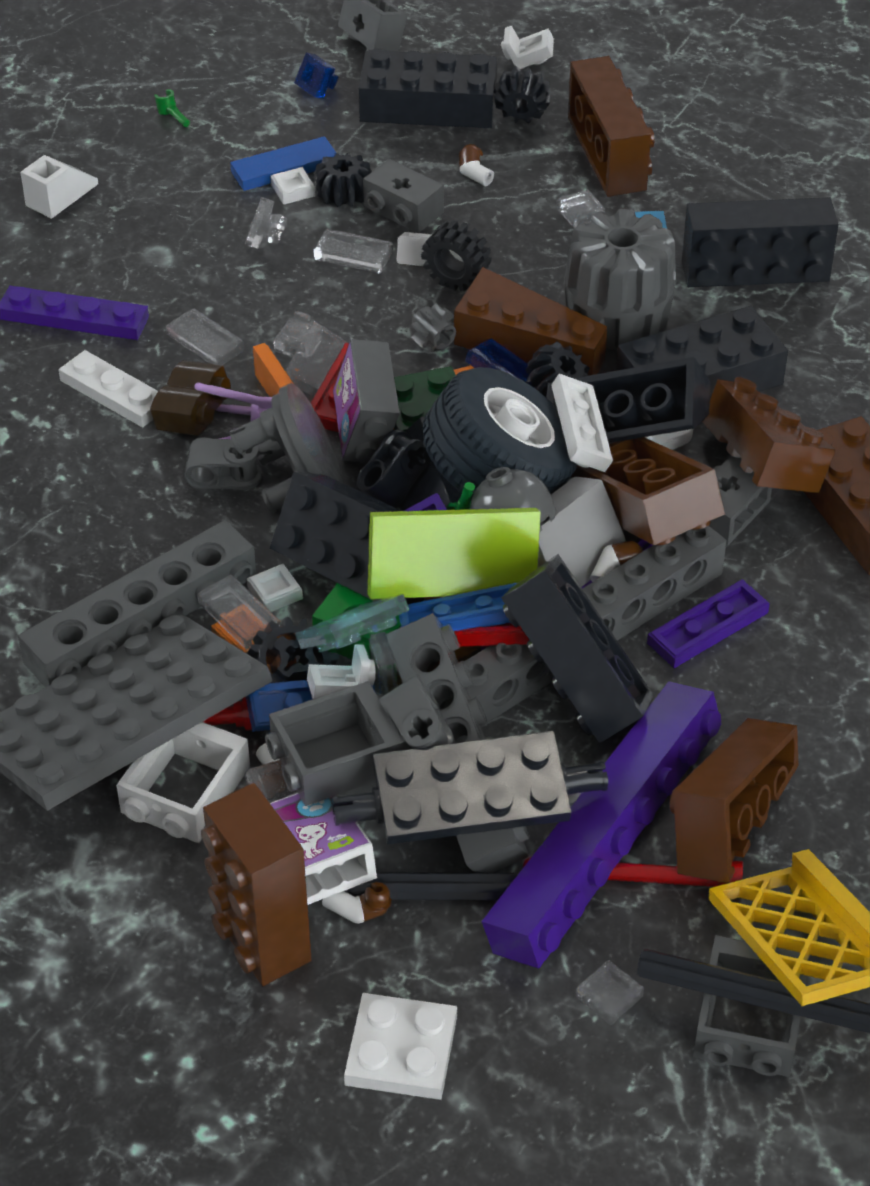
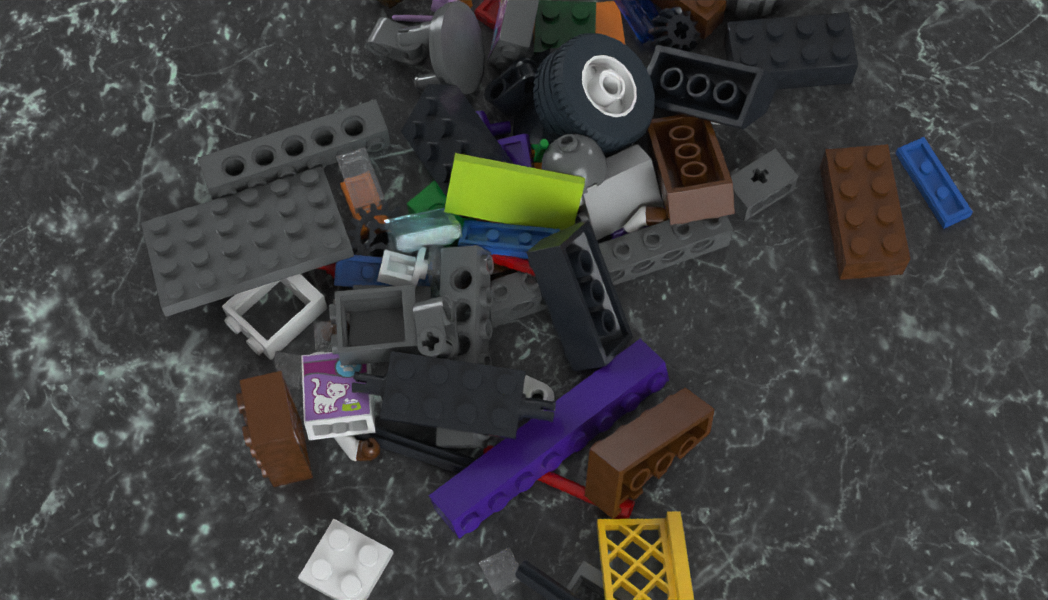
camera: 20 degrees right, 20 degrees up
(275, 588) = (397, 162): white tile -> none
(581, 423) = (660, 98): white plate -> none
(708, 623) = (698, 287): dark purple tile -> none
(767, 438) = (802, 146): reddish brown wedge -> none

